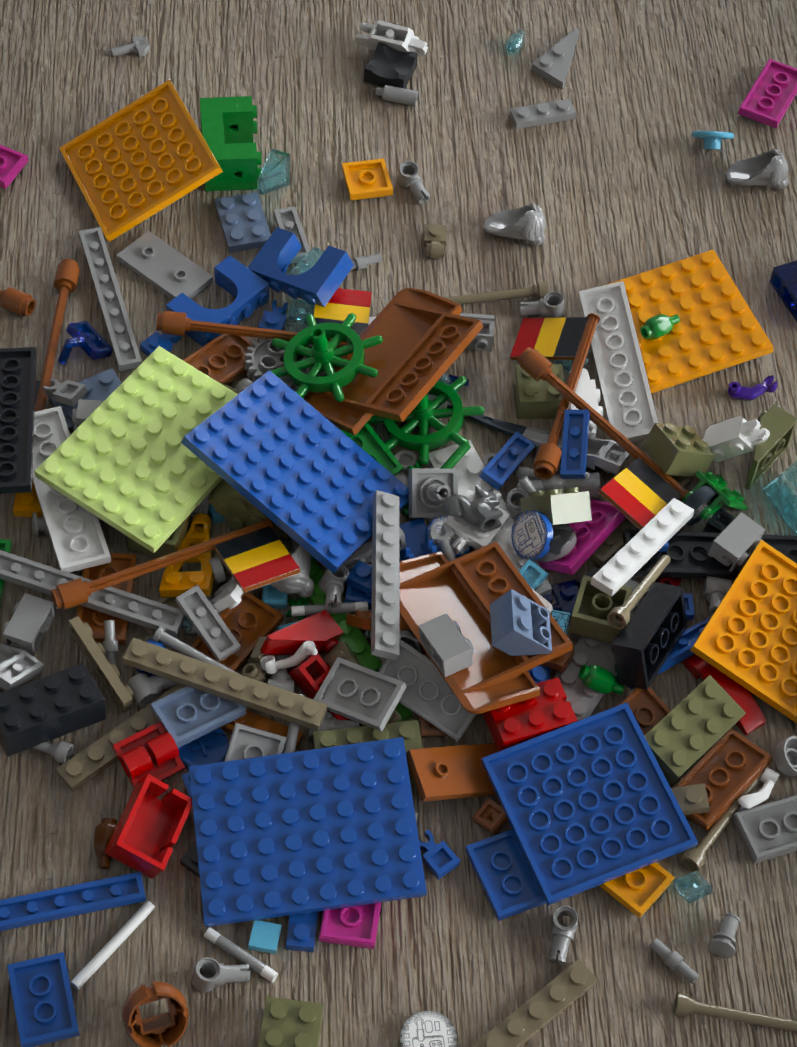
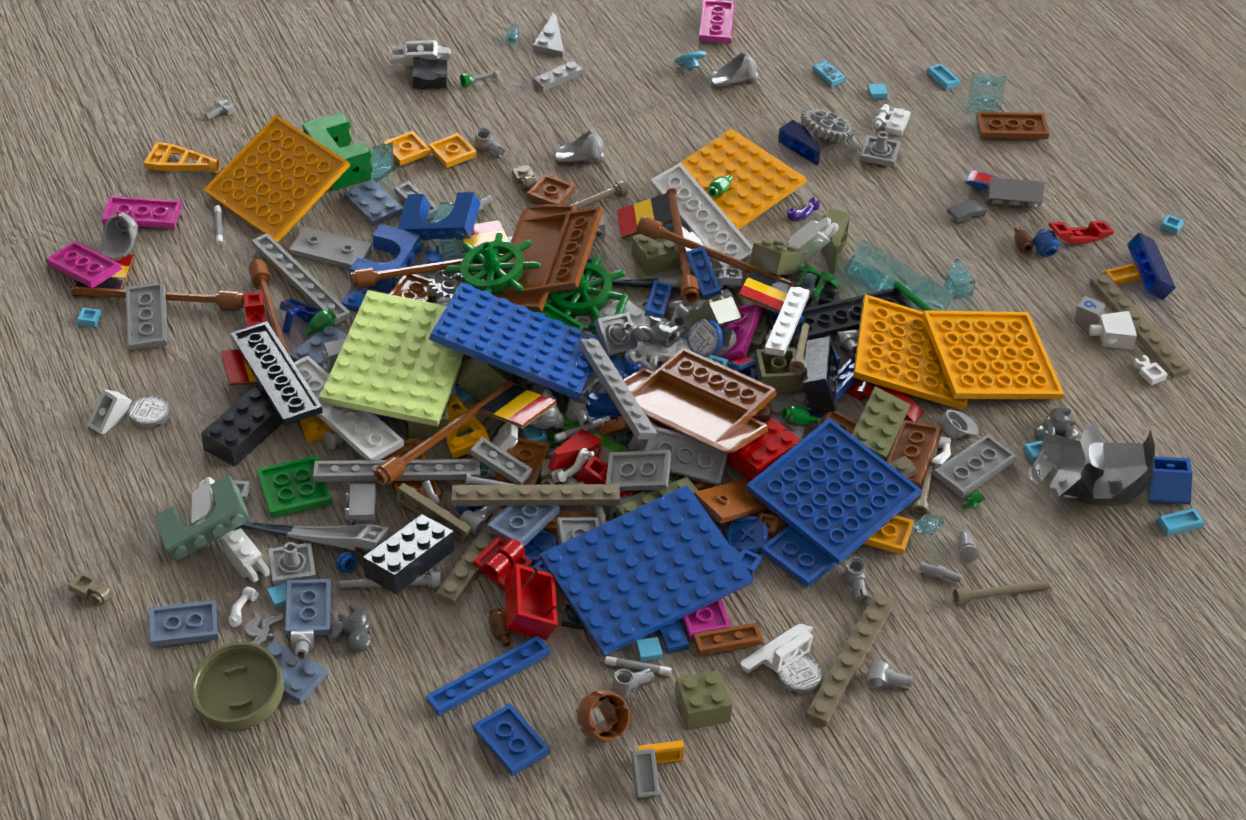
camera: 20 degrees left, 10 degrees down
(37, 86) = (162, 151): none -> light orange plate
(38, 327) = (254, 308): none -> red slope
(58, 192) = (218, 225): none -> bar
(66, 393) = (306, 346): light grey plate -> none
(102, 363) = (320, 321): none -> green plant
(112, 945) = (539, 695): white bar -> none
(217, 569) = (489, 426): light grey tile -> none
(315, 160) = (408, 148): none -> light orange plate
(364, 959) = (728, 639): none -> dark orange plate
(398, 95) = (445, 90): light grey cylinder -> none
(419, 999) = (781, 650): none -> white plate
(431, 88) = (467, 79): none -> hinge
(446, 644) = (687, 416): light grey brick -> none
(455, 270) = (551, 191): none -> dark orange plate
(458, 823) = (747, 534): none -> blue tile
(520, 625) = (734, 387): sand blue slope -> none
(550, 306) = (634, 195): light grey pin -> none
(561, 582) = (741, 364): none -> blue slope
(736, 542) = (848, 302): light grey hinge -> none
(767, 872) = (973, 500): none -> green plant

